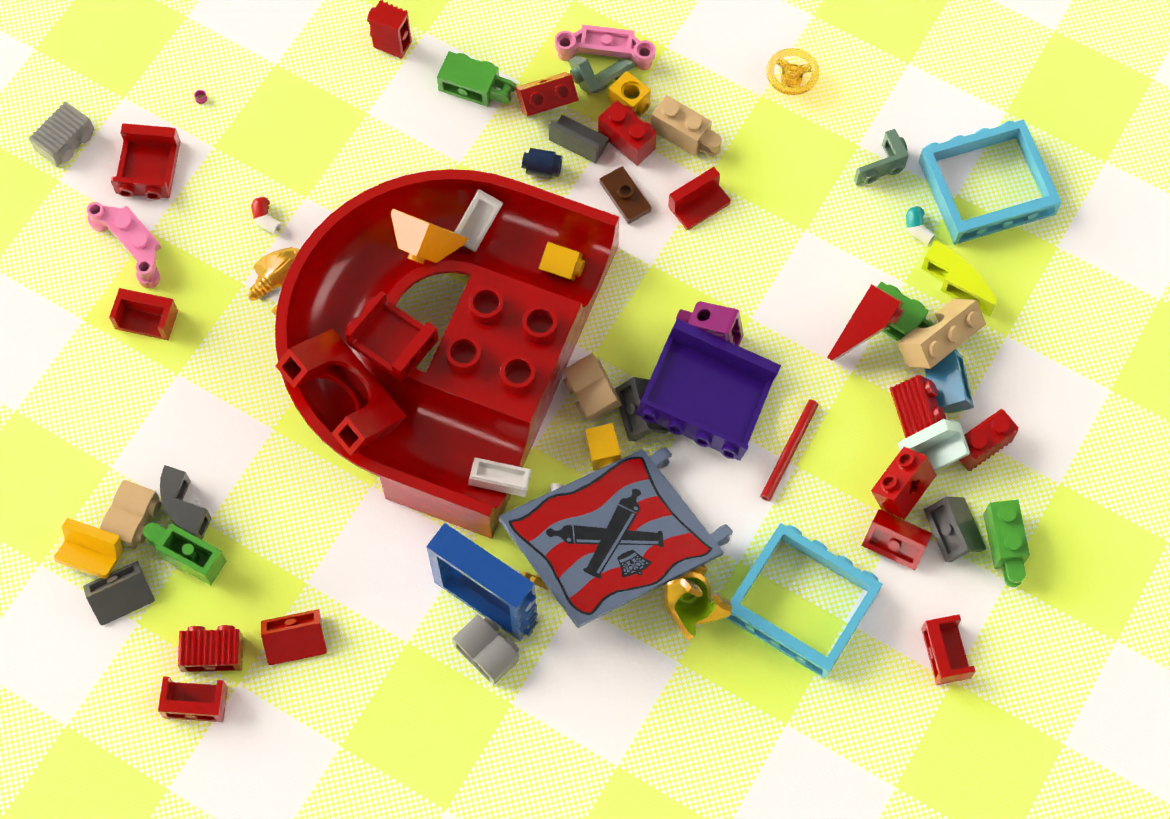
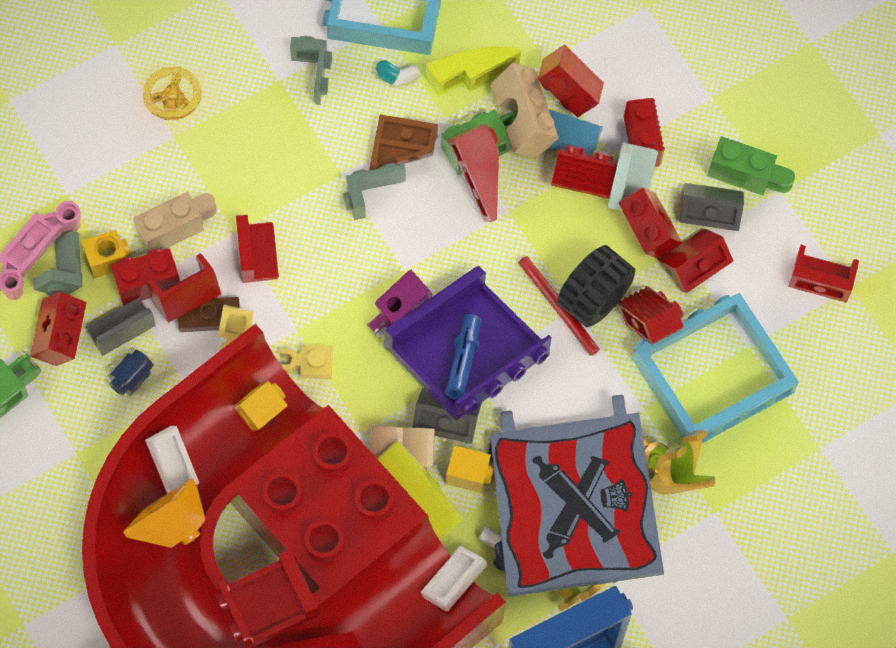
camera: 65 degrees left, 0 degrees up
(560, 415) = (421, 487): none -> neon yellow slope
(627, 166) = (187, 293): none -> red panel
(627, 210) = (233, 323): none -> light yellow plate
(629, 287) = (313, 362): none -> light yellow plate
(701, 389) = (465, 345): none -> blue pin
(796, 242) = (365, 180): none -> sand green bracket
(816, 463) = (596, 286): none -> black tyre
(819, 522) = (651, 314): none -> red brick
(858, 258) = (402, 141): none -> dark orange wing
(991, 355) = (570, 81): none -> red brick

